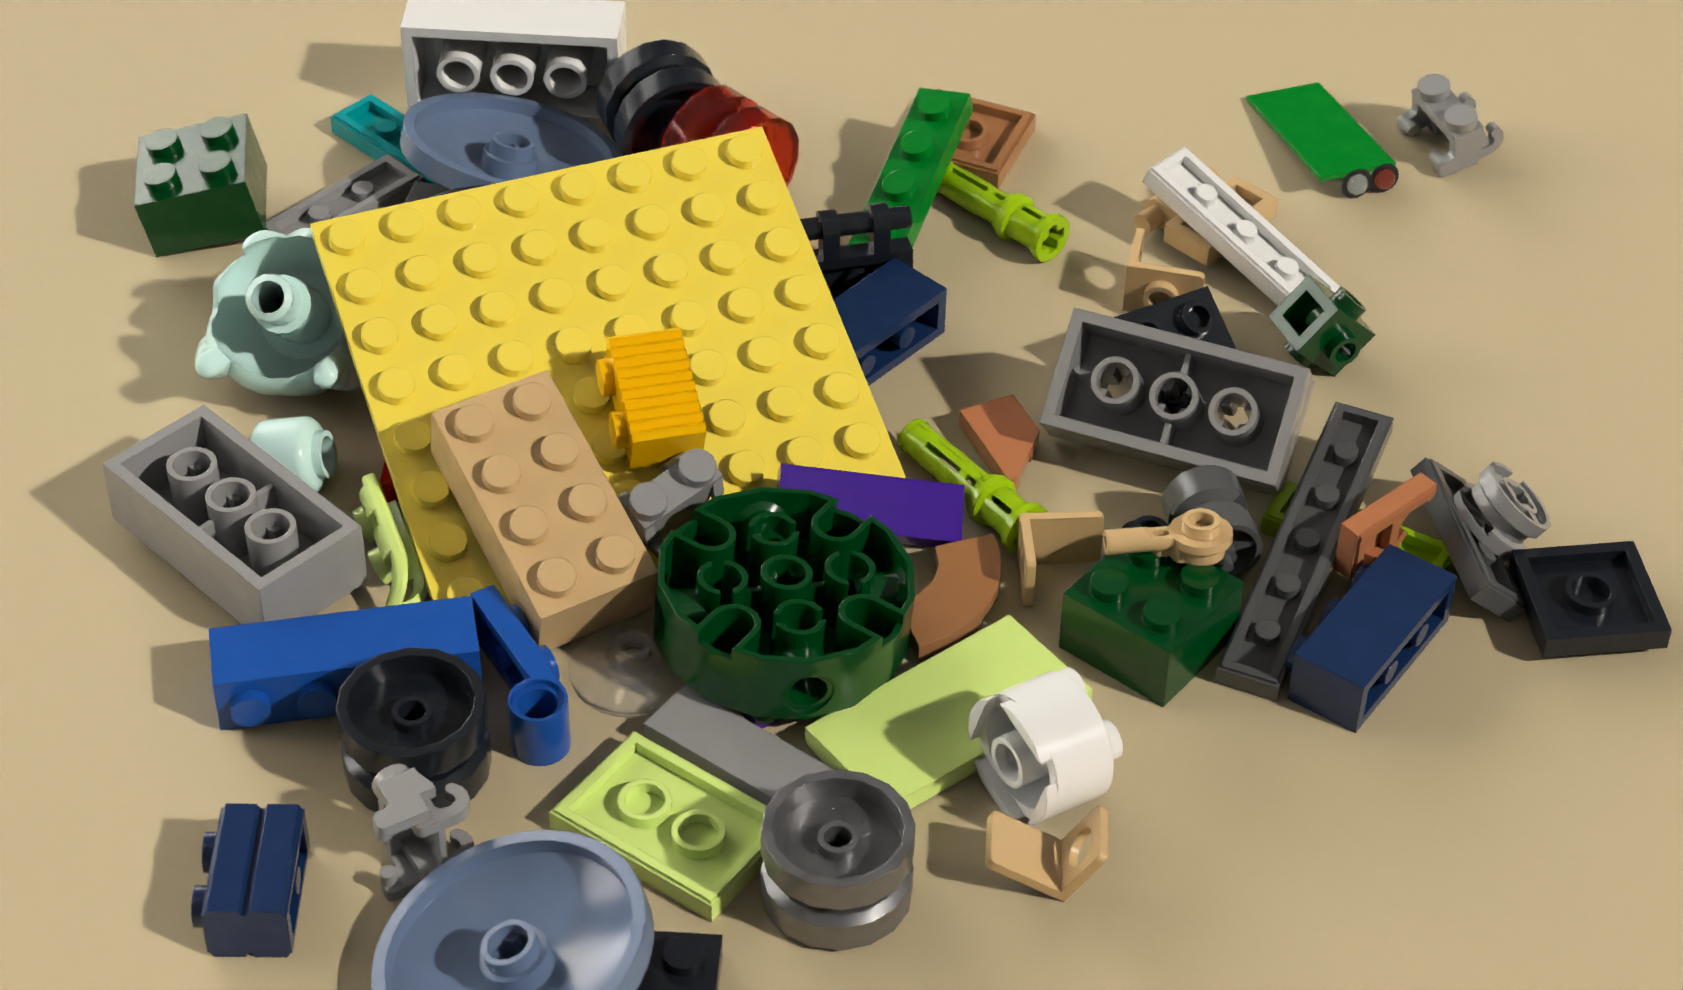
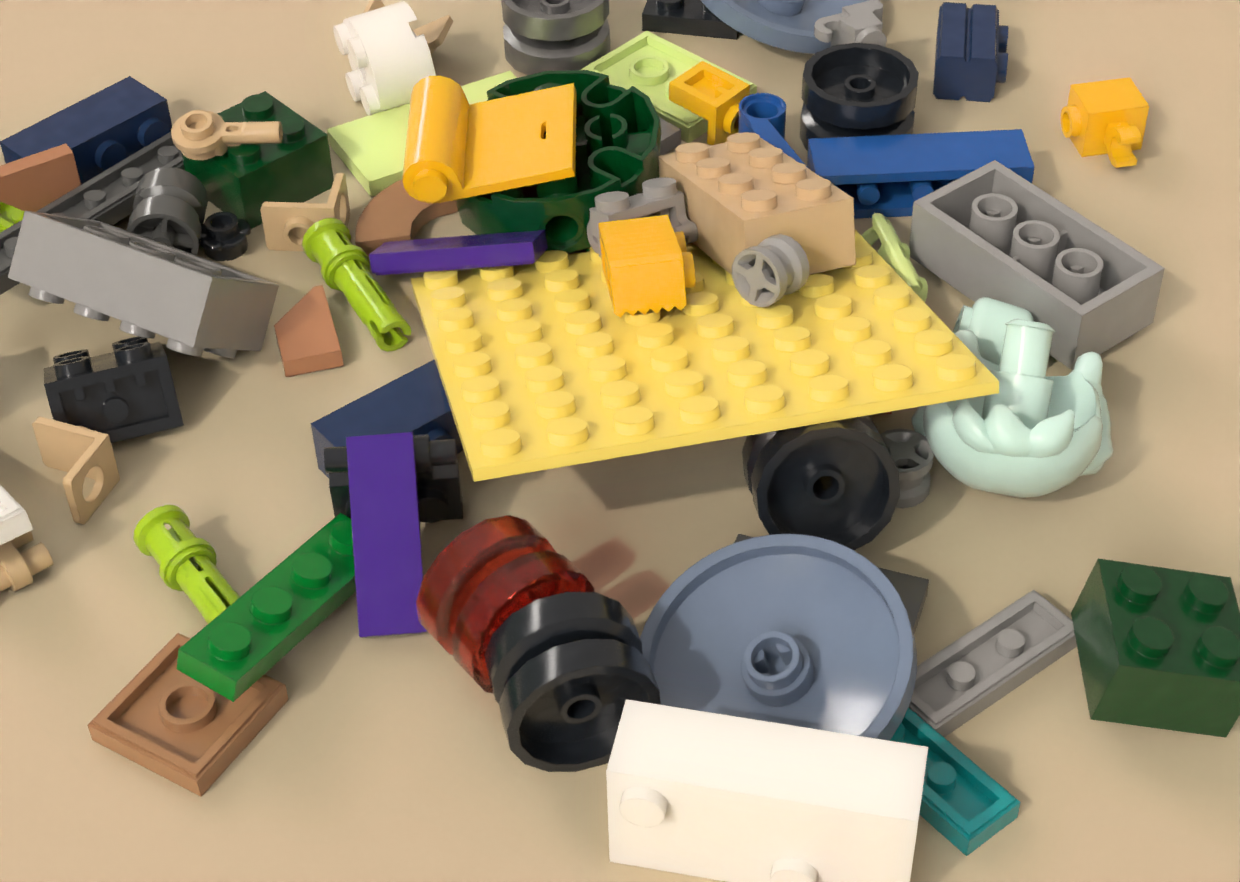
camera: 170 degrees left, 0 degrees up
(93, 768) = (1106, 119): none -> yellow brick
(521, 356) = (770, 270): none -> light grey wheel
(605, 741) = (711, 96): none -> yellow bracket
(844, 197) = (385, 533): none -> dark purple tile
(856, 536) = (487, 145): none -> yellow door

